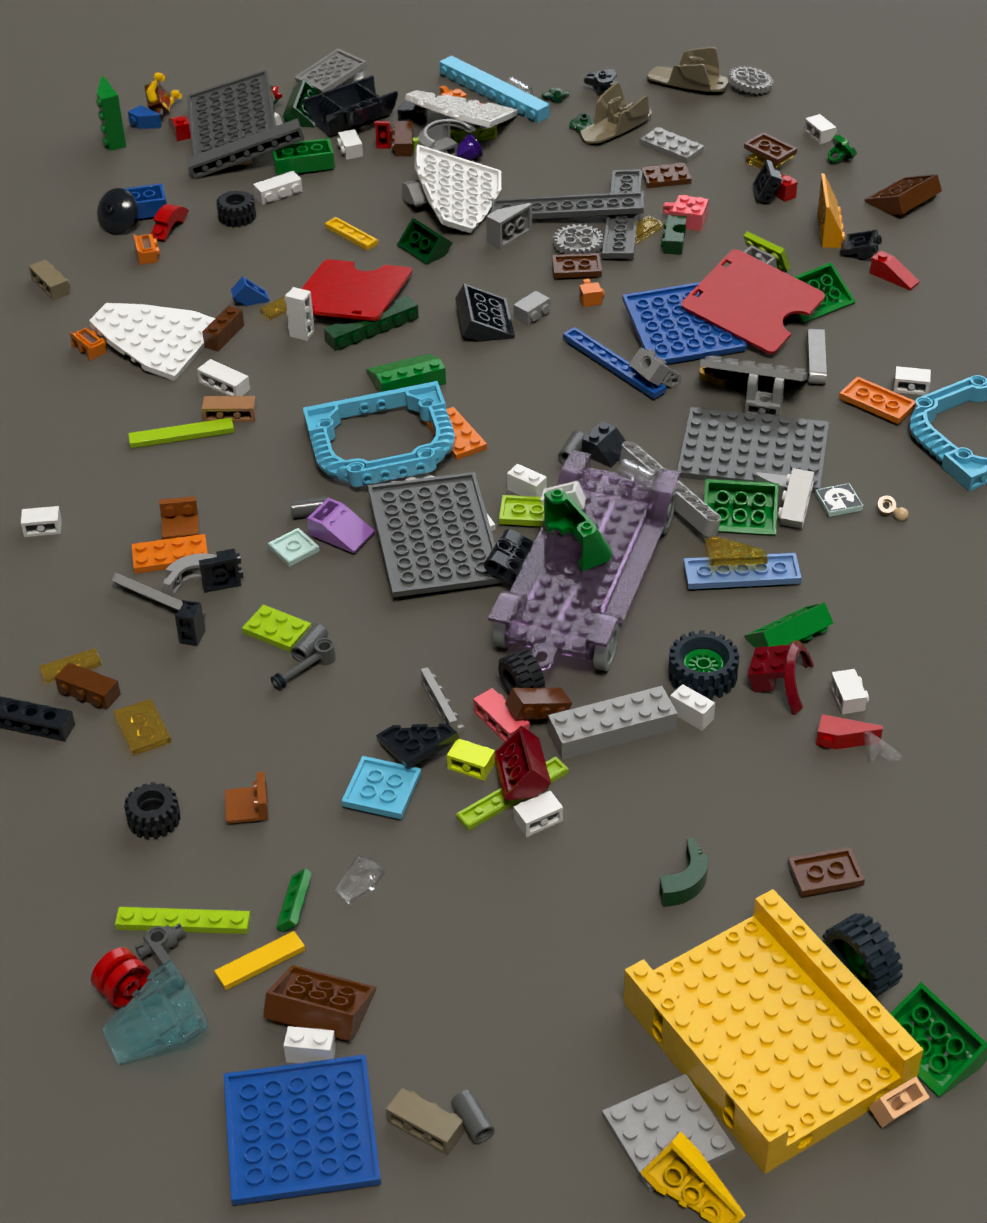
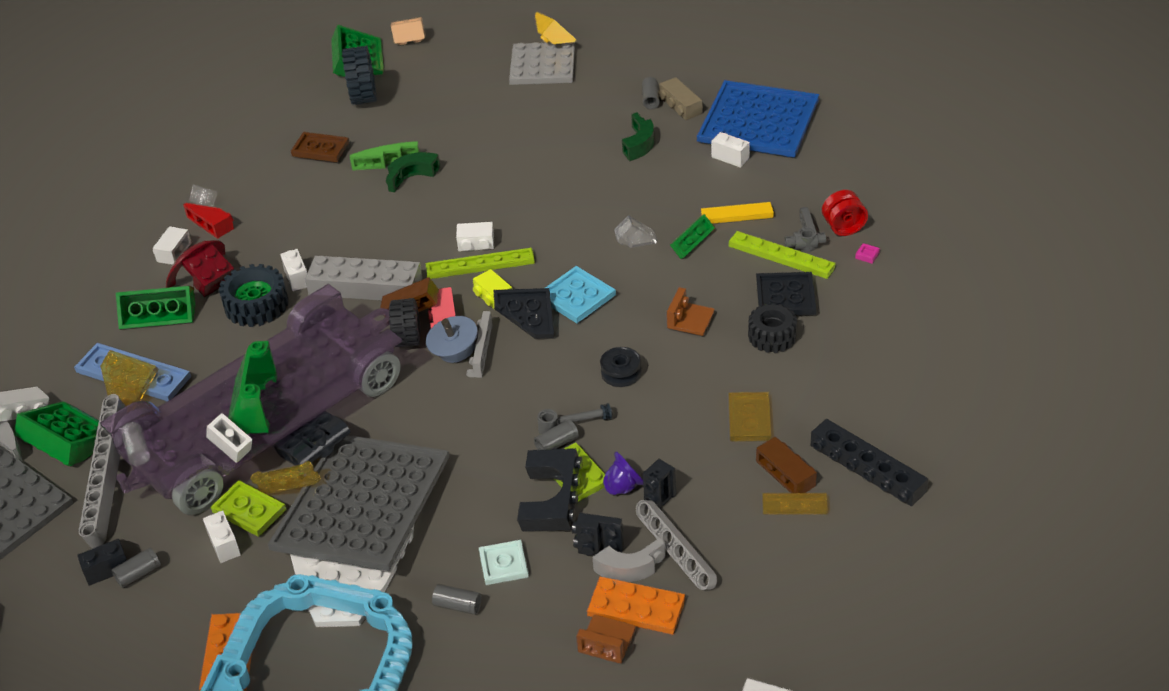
camera: 150 degrees left, 0 degrees up
(83, 958) = (867, 253): none -> dark pink tile
(156, 865) = (788, 289): none -> black plate
(156, 1018) = (814, 185): clear light blue wedge -> none
(225, 628) = (621, 477): none -> dark purple piece
(282, 606) = (558, 511): none -> black arch
(288, 725) = (620, 366): none -> black wheel
(318, 1001) = (709, 172): reddish brown slope -> none
(339, 526) = (446, 557): medium lavender slope -> none
(434, 1014) = (640, 143): none -> dark green arch
(464, 683) = (452, 338): none -> sand blue piece
(509, 520) = (286, 478): none -> clear yellow plate
(522, 766) = (463, 259): dark red slope -> none
(738, 880) = (380, 156): none -> bright green slope
(773, 1032) = (443, 79): yellow brick -> none

